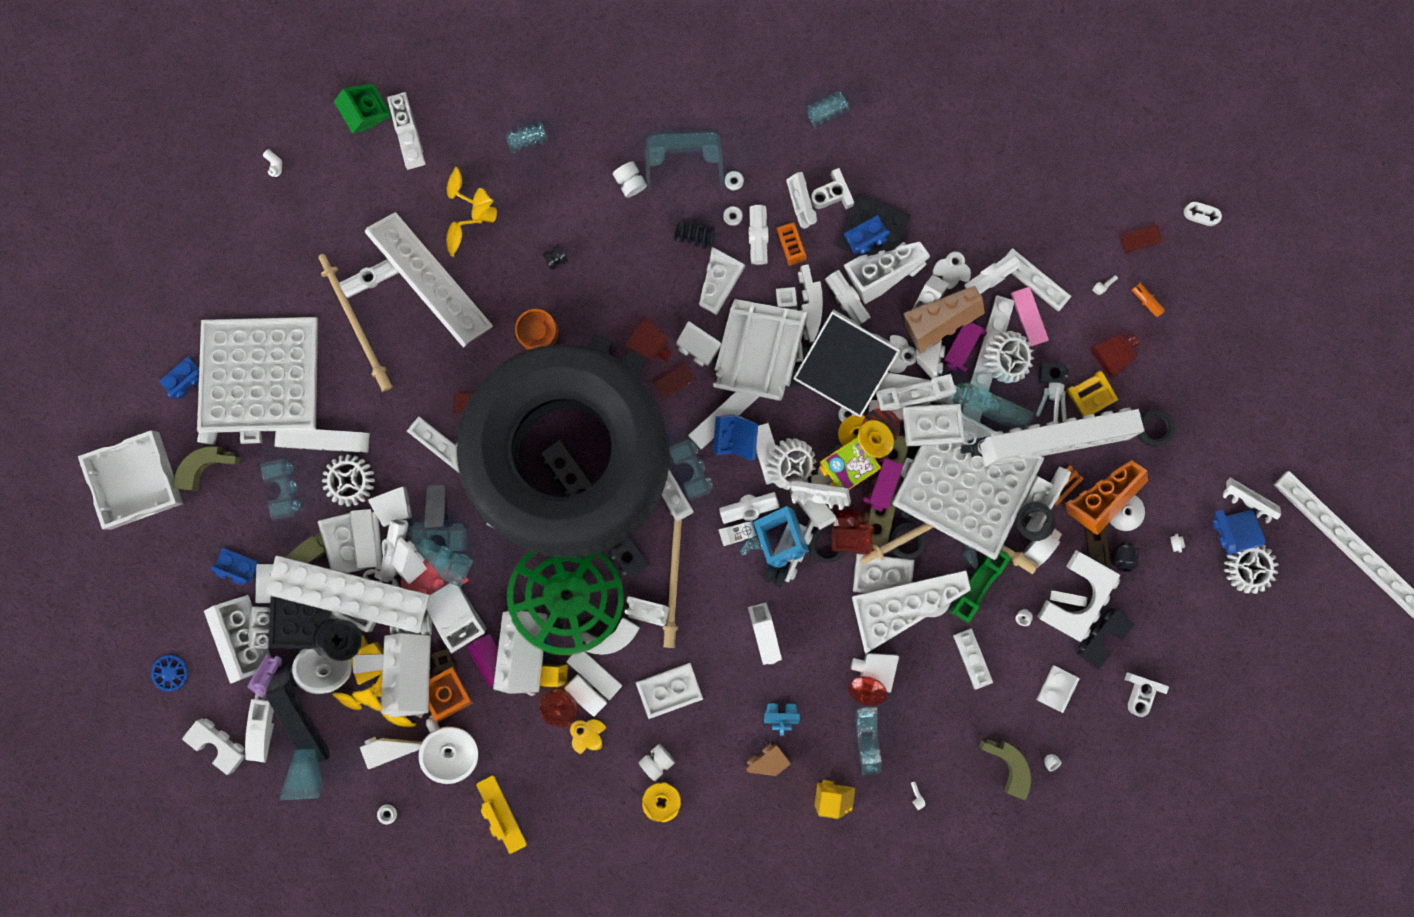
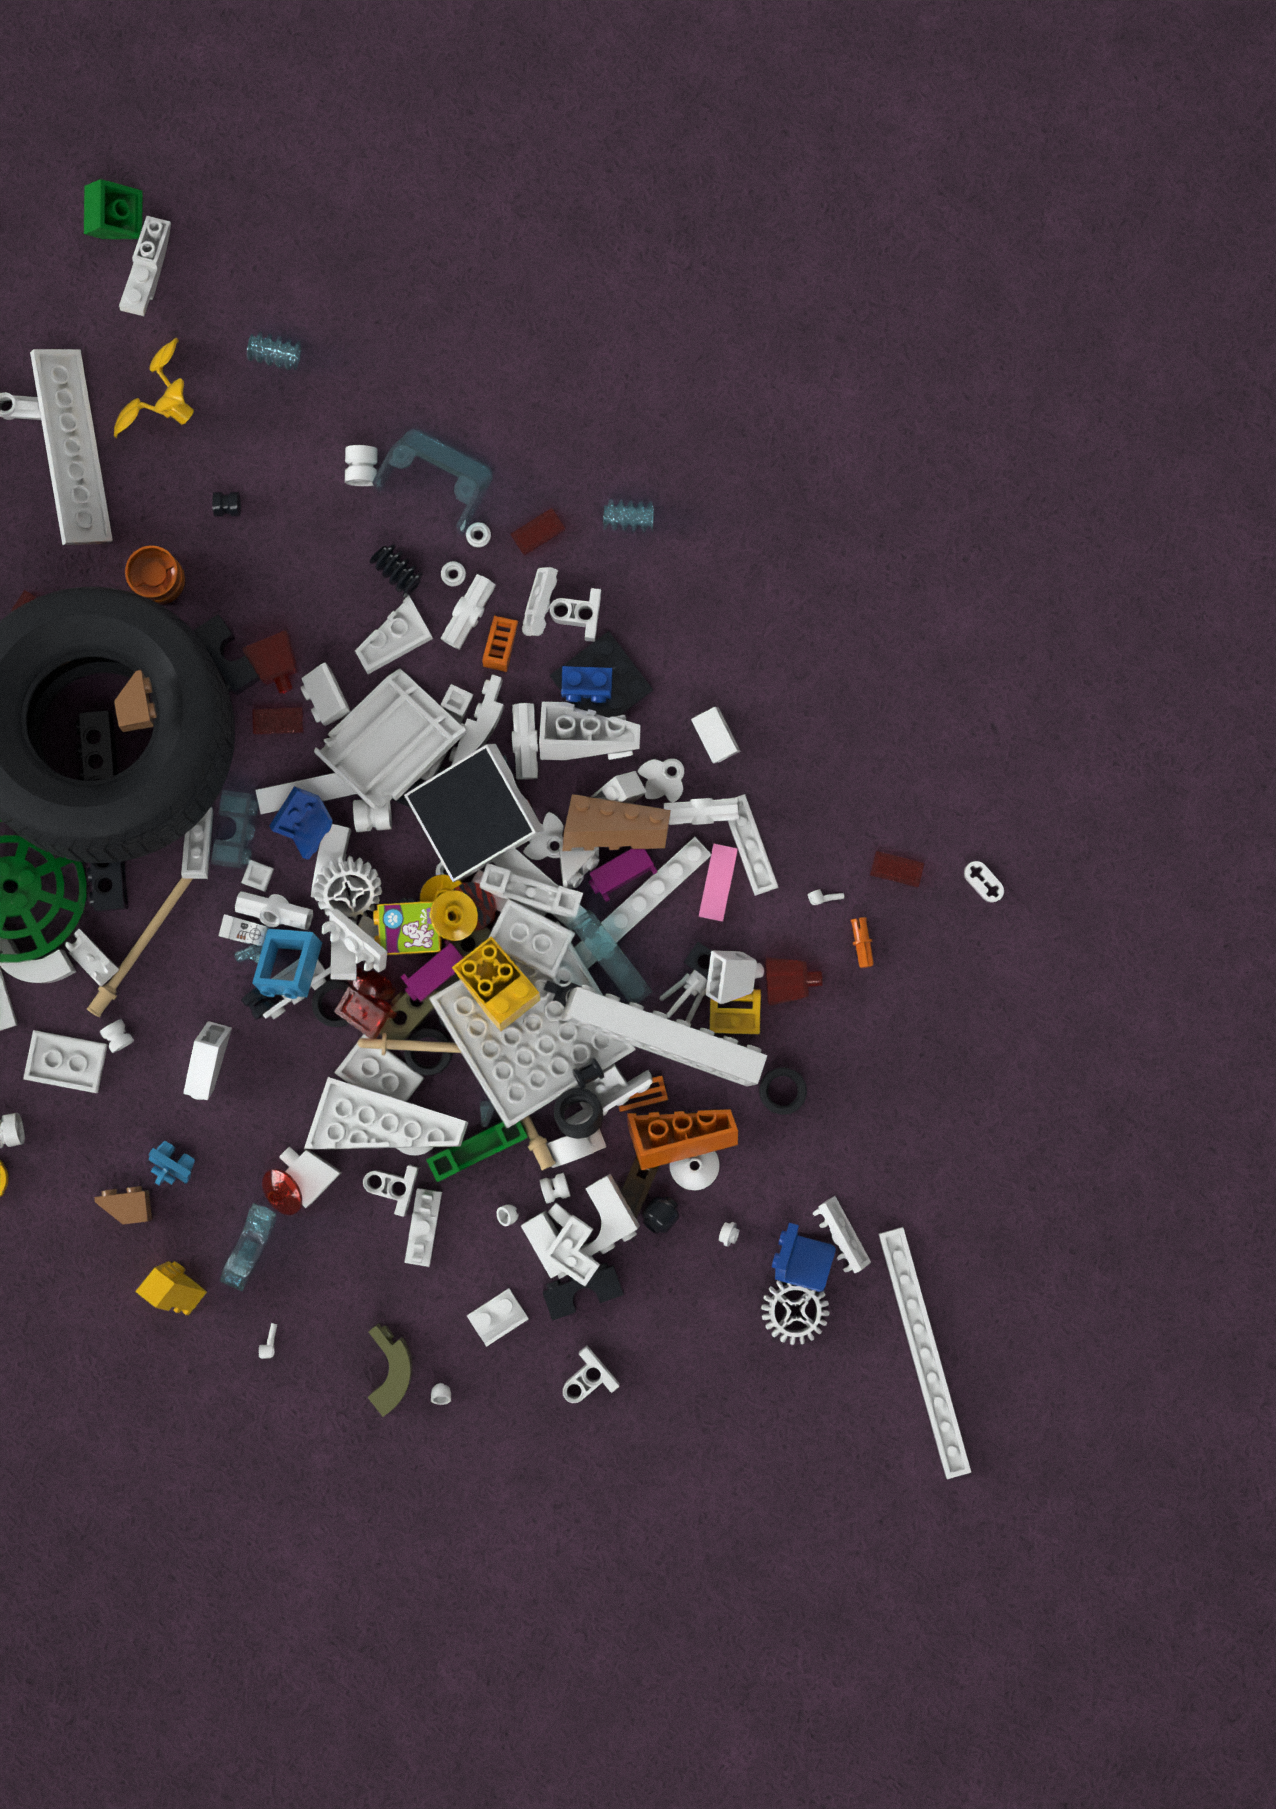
camera: 35 degrees right, 0 degrees up
(591, 419) = (133, 704): none -> medium nougat slope
(695, 653) = (115, 1034): none -> white wheel
(723, 491) = (257, 875): none -> white tile
(771, 155) = (537, 531): none -> clear red tile
(774, 408) = (366, 817): none -> white wheel
(932, 466) = (496, 983): none -> yellow slope
(934, 647) = (386, 1189): none -> white tile
(970, 220) = (715, 735): none -> white hinge
(1001, 364) = (671, 907): white gear -> none
(1026, 491) = (588, 1073): none -> black bush
(1045, 581) = (560, 1185): none -> white wheel
(1078, 372) = (731, 975): none -> white torso
(1082, 617) = (566, 1251): none -> white plate

